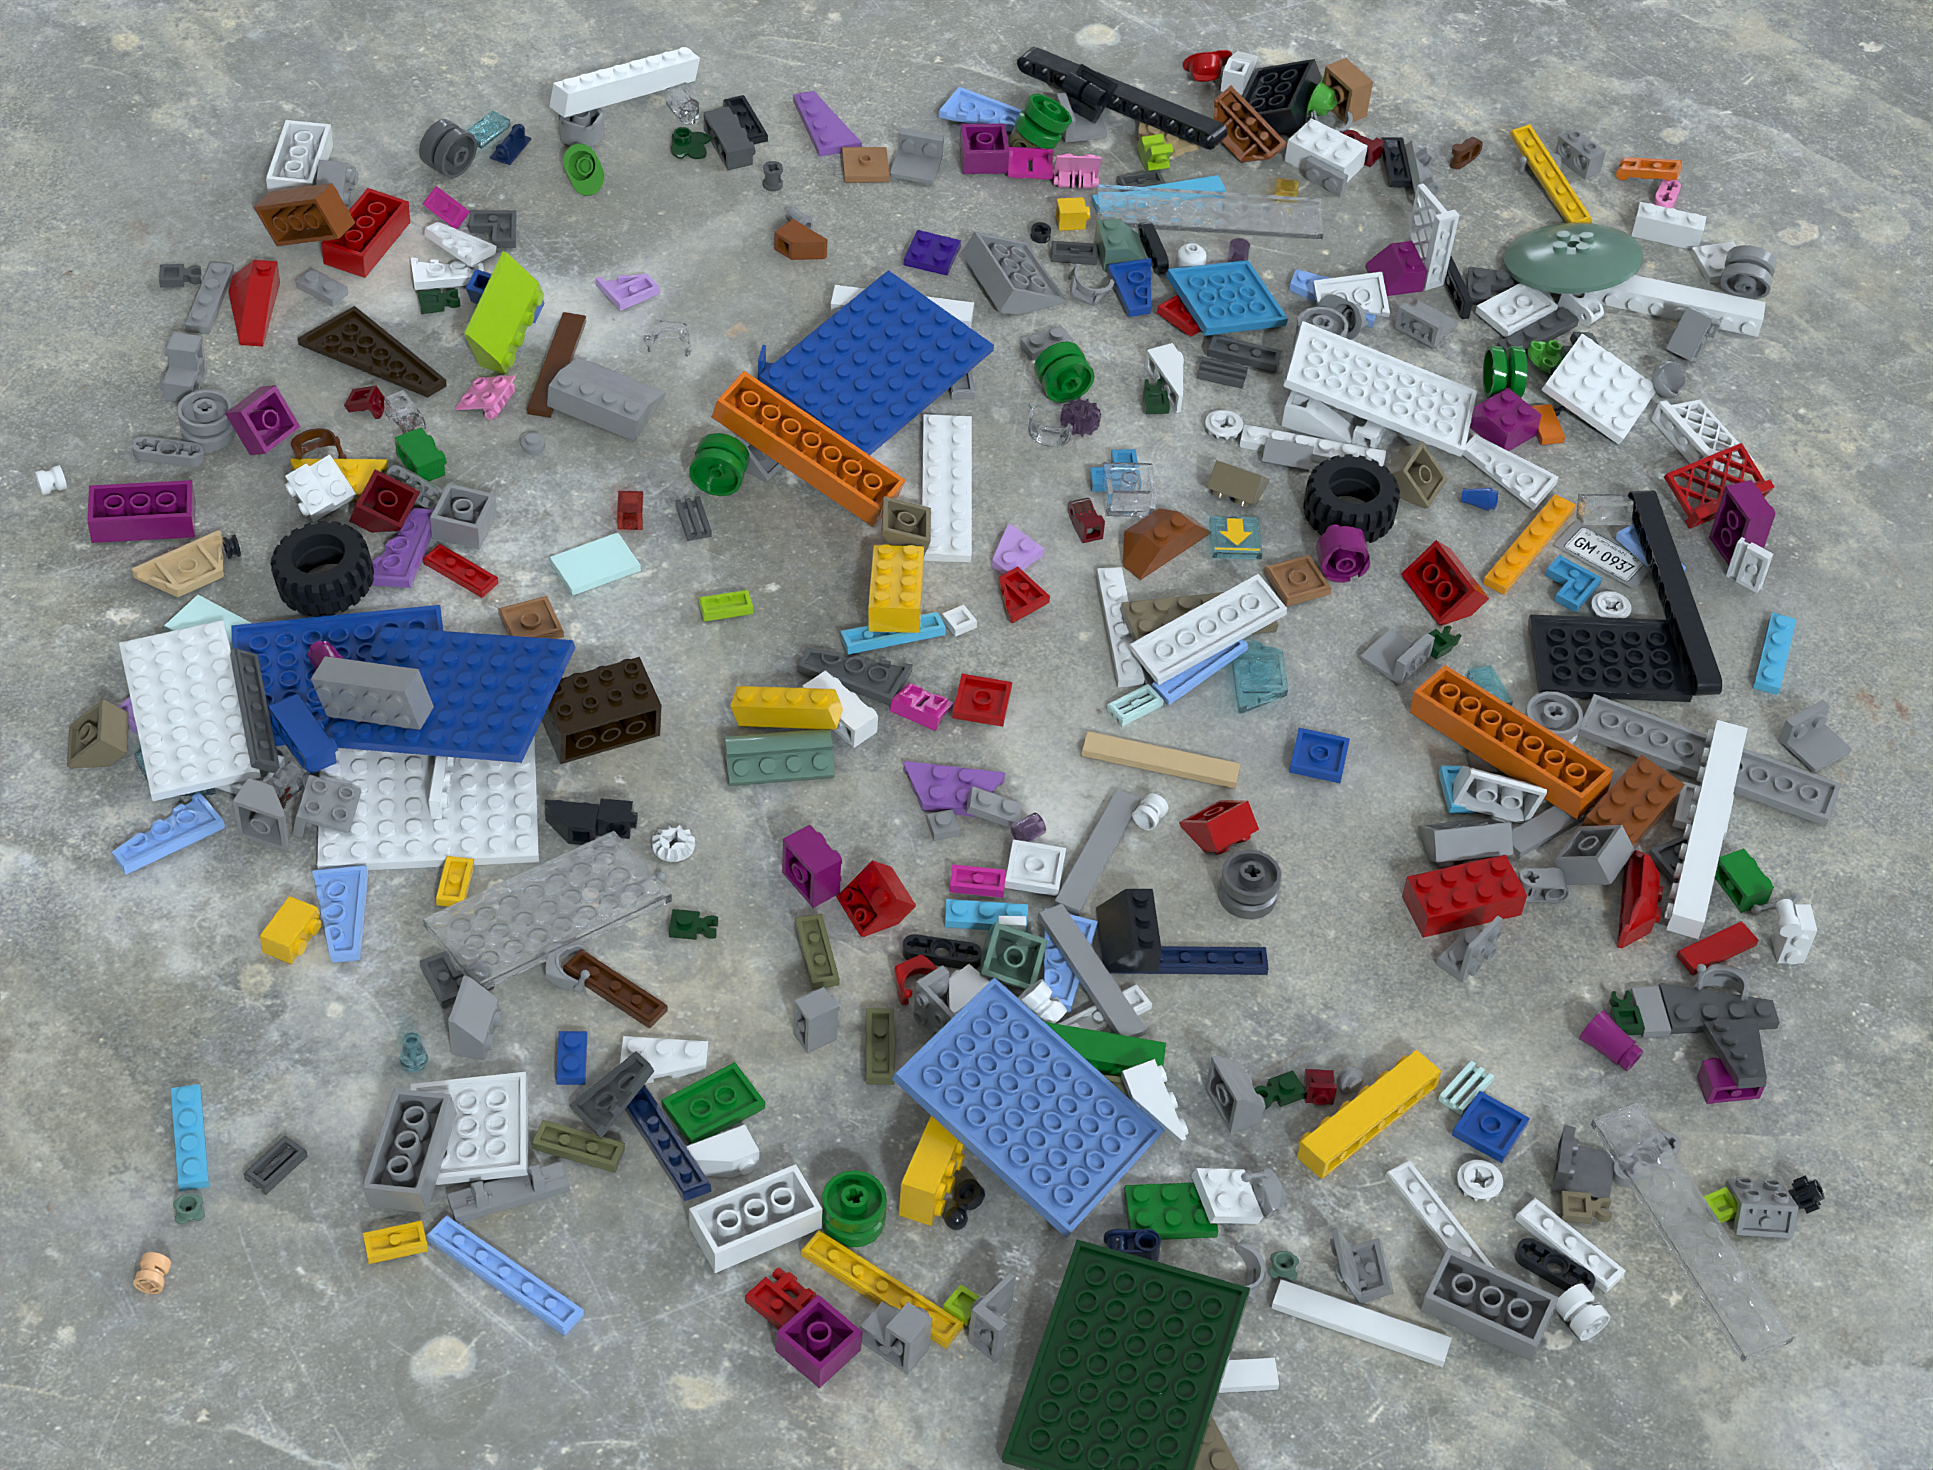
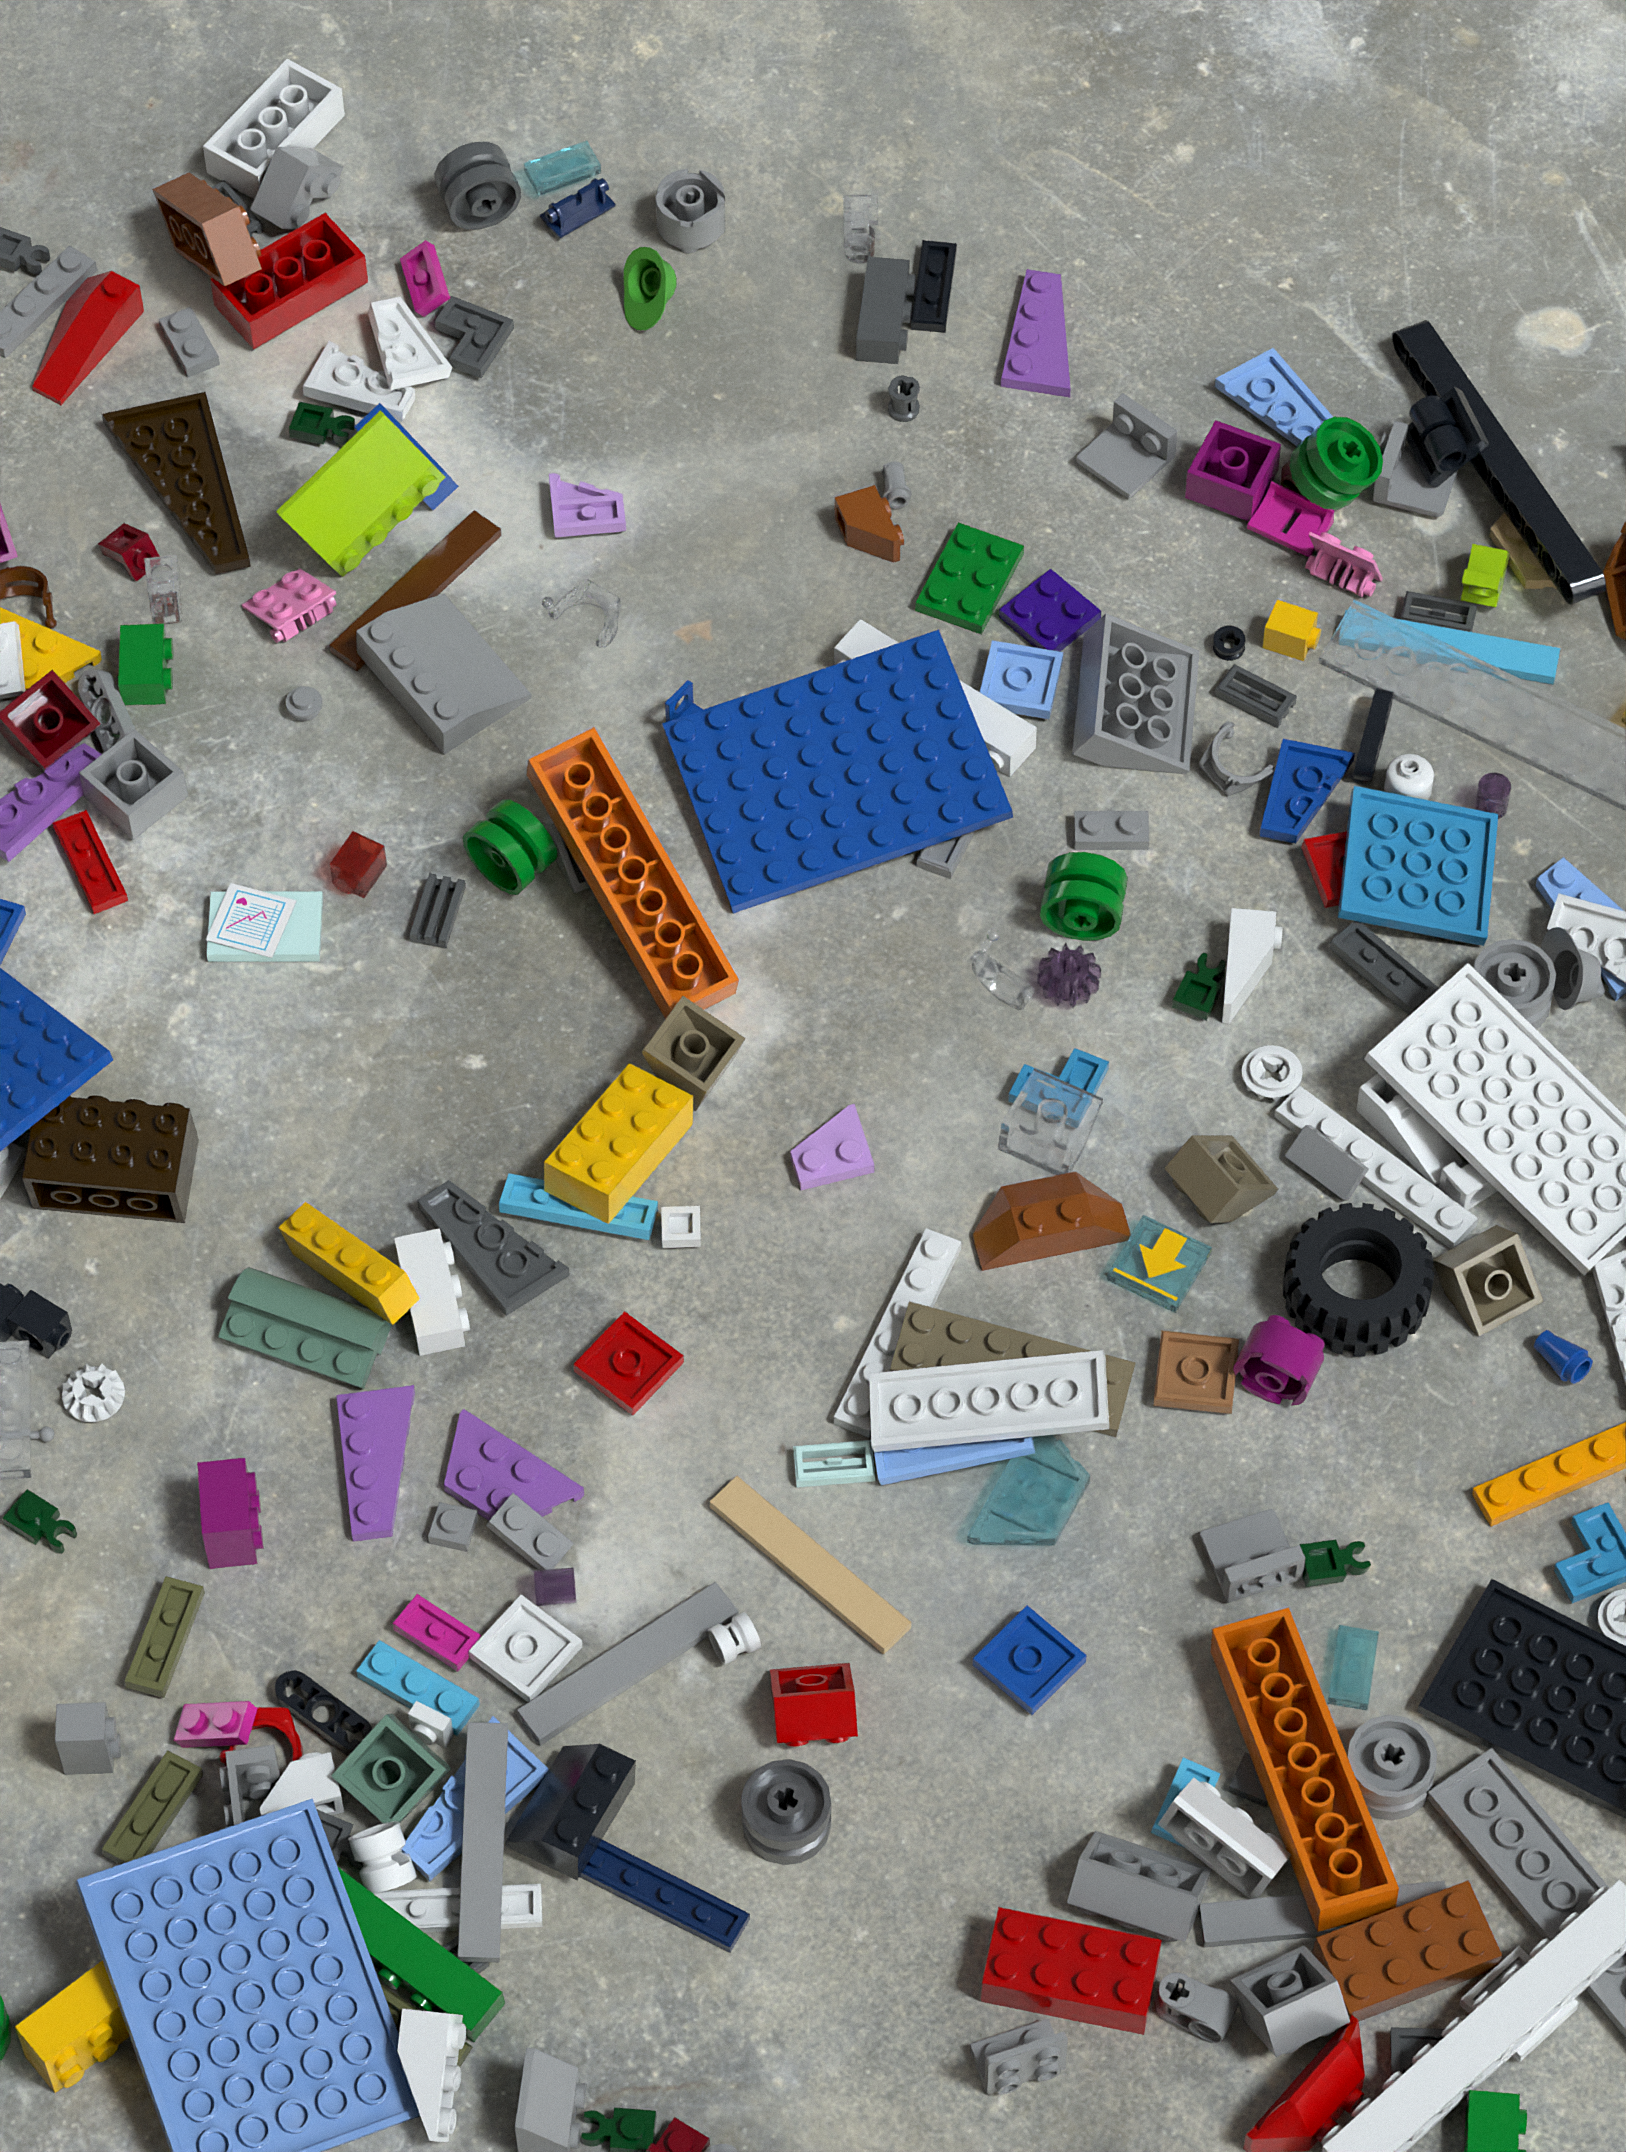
camera: 35 degrees right, 10 degrees up
(531, 619) = (123, 981): medium nougat plate -> none
(586, 562) = (251, 920): none -> white sticker
(623, 82) = (780, 168): white brick -> none
(689, 143) = (826, 301): dark green plate -> none
(725, 605) = (388, 1066): lime plate -> none
(865, 164) = (1054, 427): medium nougat plate -> none
(867, 806) = (373, 1448): none -> medium lavender wing
(874, 250) = (969, 578): none -> green plate
(876, 899) = (287, 1598): red slope -> none
(885, 981) = (215, 1724): none -> dark pink plate
(929, 714) = (549, 1349): dark pink piece -> none
(943, 283) = (1022, 678): none -> light blue plate
(948, 486) = (810, 1008): white plate -> none
(969, 1196) = (117, 2079): black plate -> none
(1021, 594) = (792, 1223): red wing -> none
(1085, 517) = (963, 1144): dark red leg -> none
(1117, 242) = (1326, 710): sand green slope -> none
(1222, 372) = (1336, 982): dark grey tile -> none
(1444, 584) = (1403, 1474): red slope -> none

